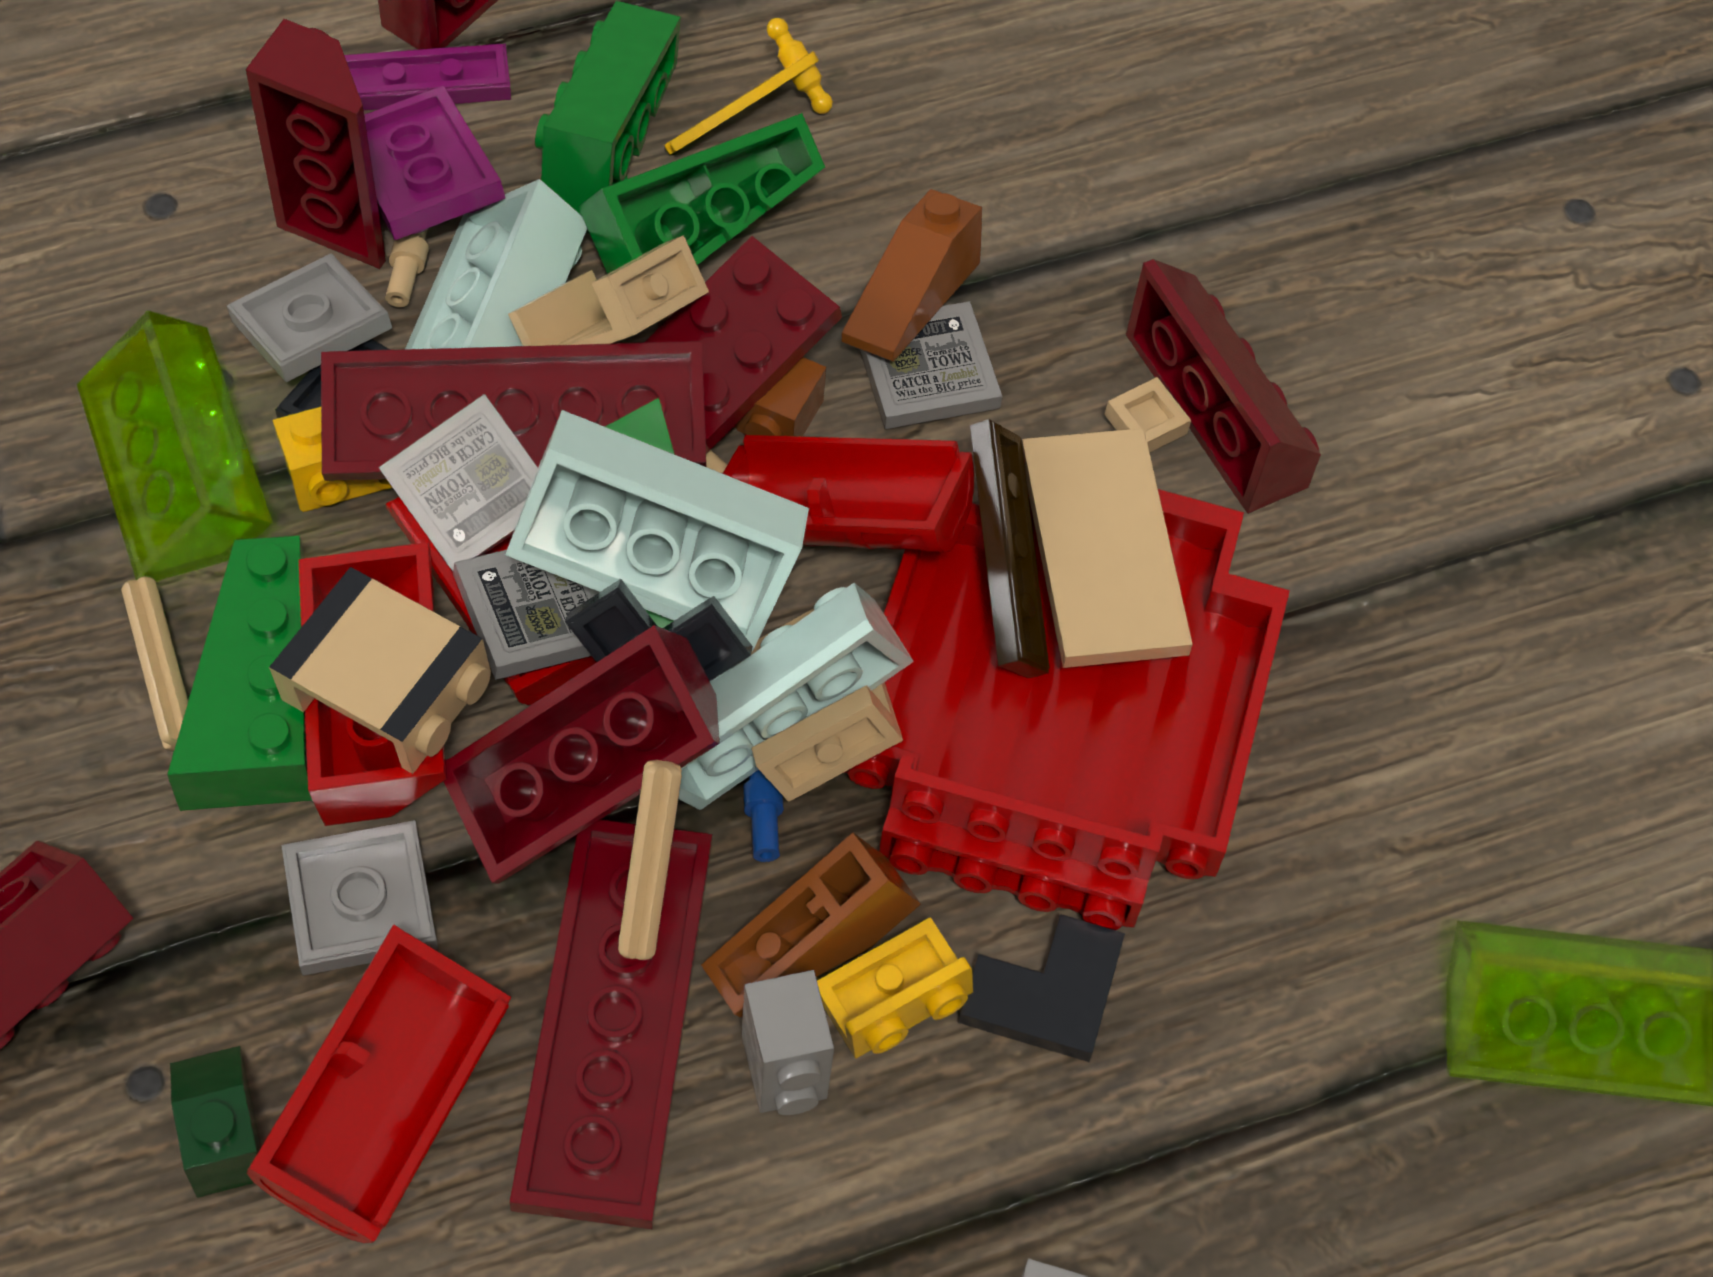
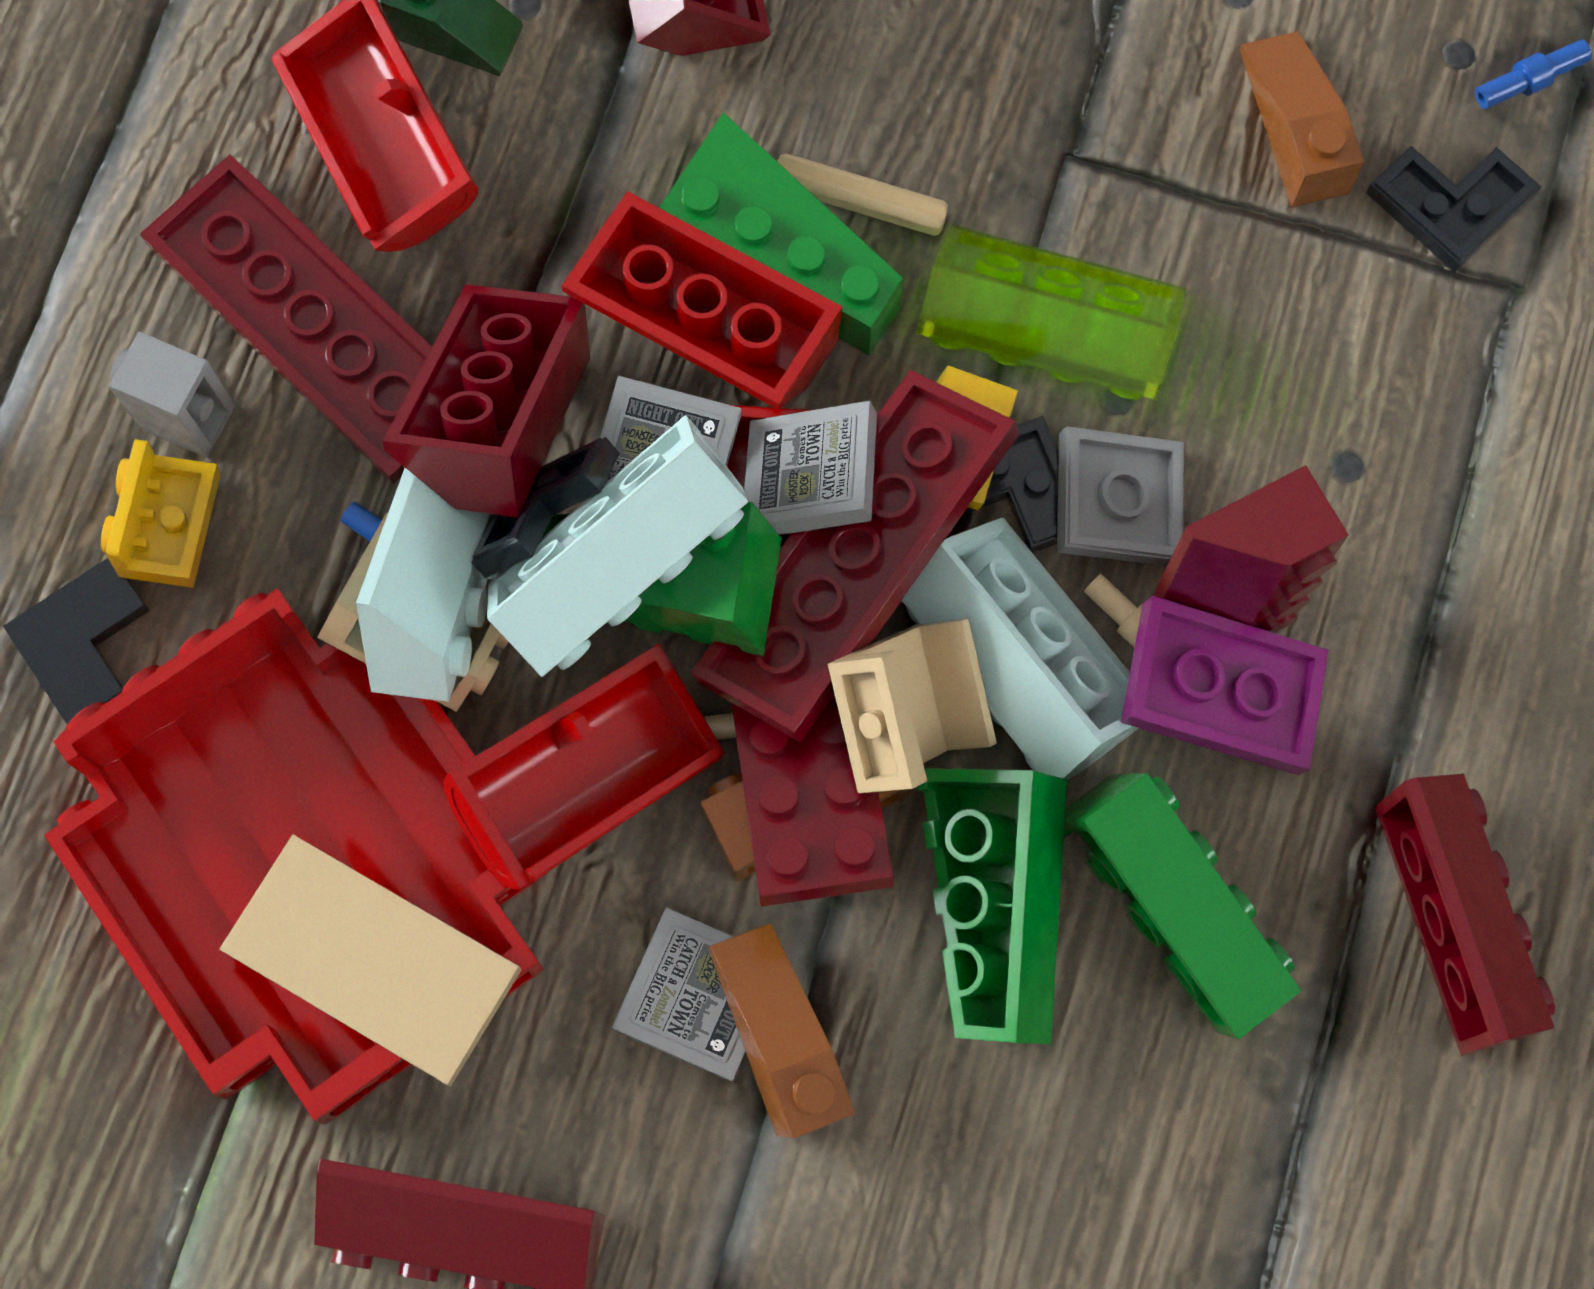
camera: 135 degrees right, 15 degrees up
(352, 891) = (546, 211): light grey tile -> none
(384, 666) = (666, 274): tan panel -> none
(466, 72) = (1349, 777): magenta tile -> none
(649, 859) = (365, 372): tan axle -> none
(798, 67) = (1115, 1111): yellow piece -> none
(817, 922) = (257, 498): dark orange slope -> none
(1009, 550) = (432, 876): dark brown tile -> none
(1149, 408) = (492, 1142): tan plate -> none

